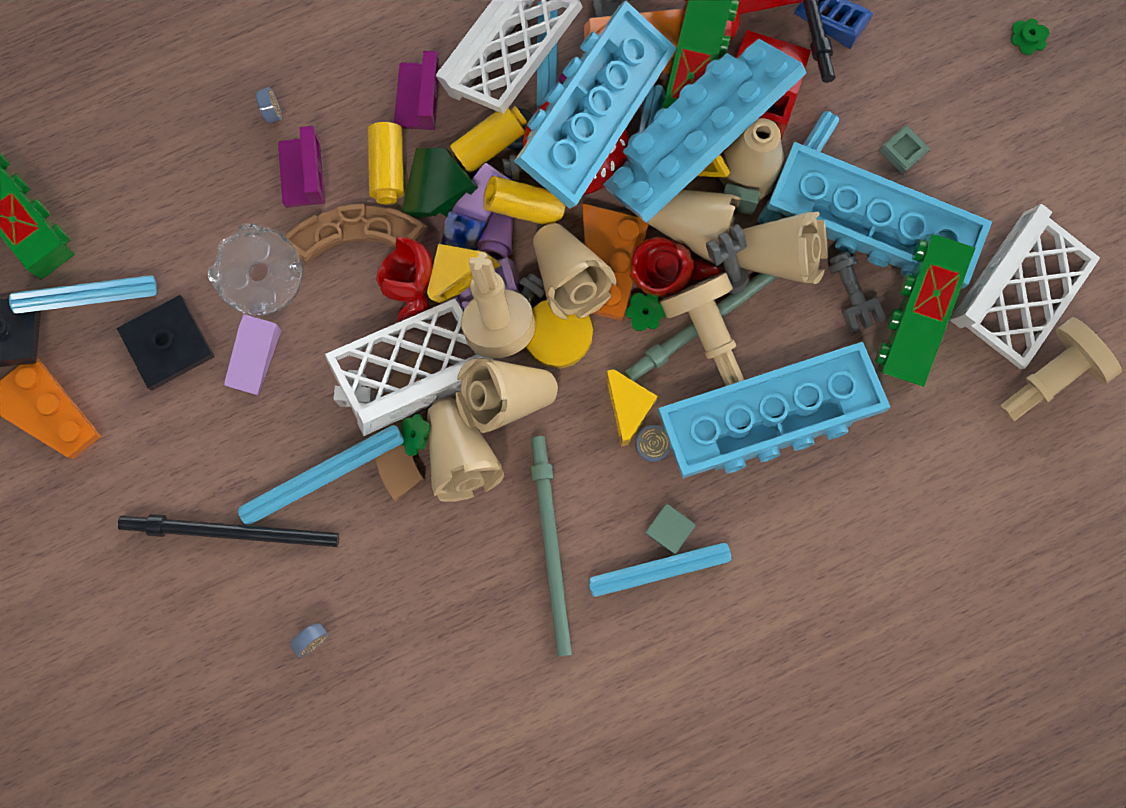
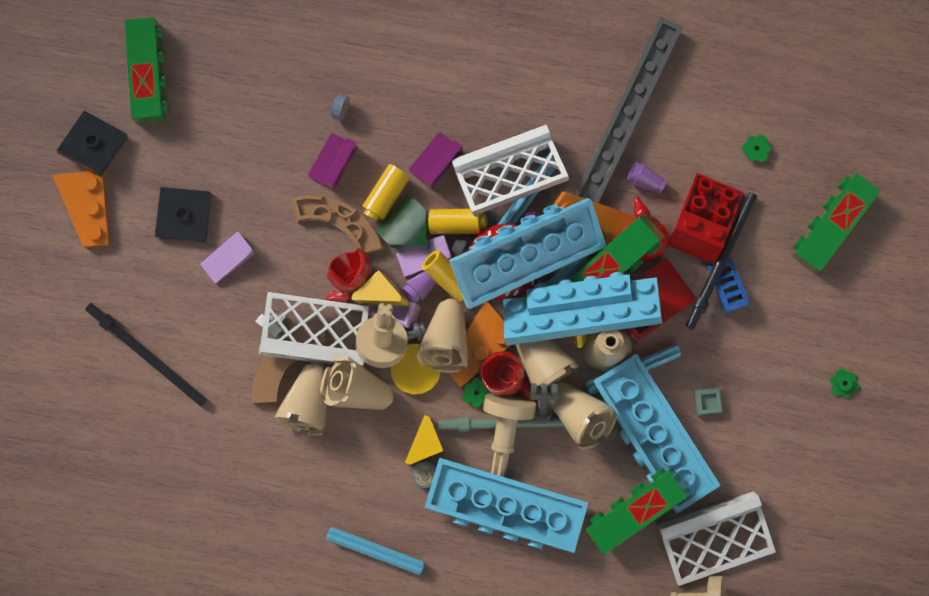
camera: 40 degrees right, 5 degrees up
(82, 294) = (154, 153): medium azure axle -> none
(238, 257) = (247, 204): clear plate -> none
(309, 639) = (149, 450): sand blue tile -> none
(320, 475) = (219, 359): medium azure axle -> none
(415, 434) = (288, 373): green plant -> none
(462, 231) = (400, 269): clear blue tile -> none
(542, 474) = (346, 447): sand green bar -> none
(670, 529) = (398, 531): sand green tile -> none
(748, 200) = (584, 366): sand green tile -> none
(860, 307) = (614, 447): dark grey hinge -> none

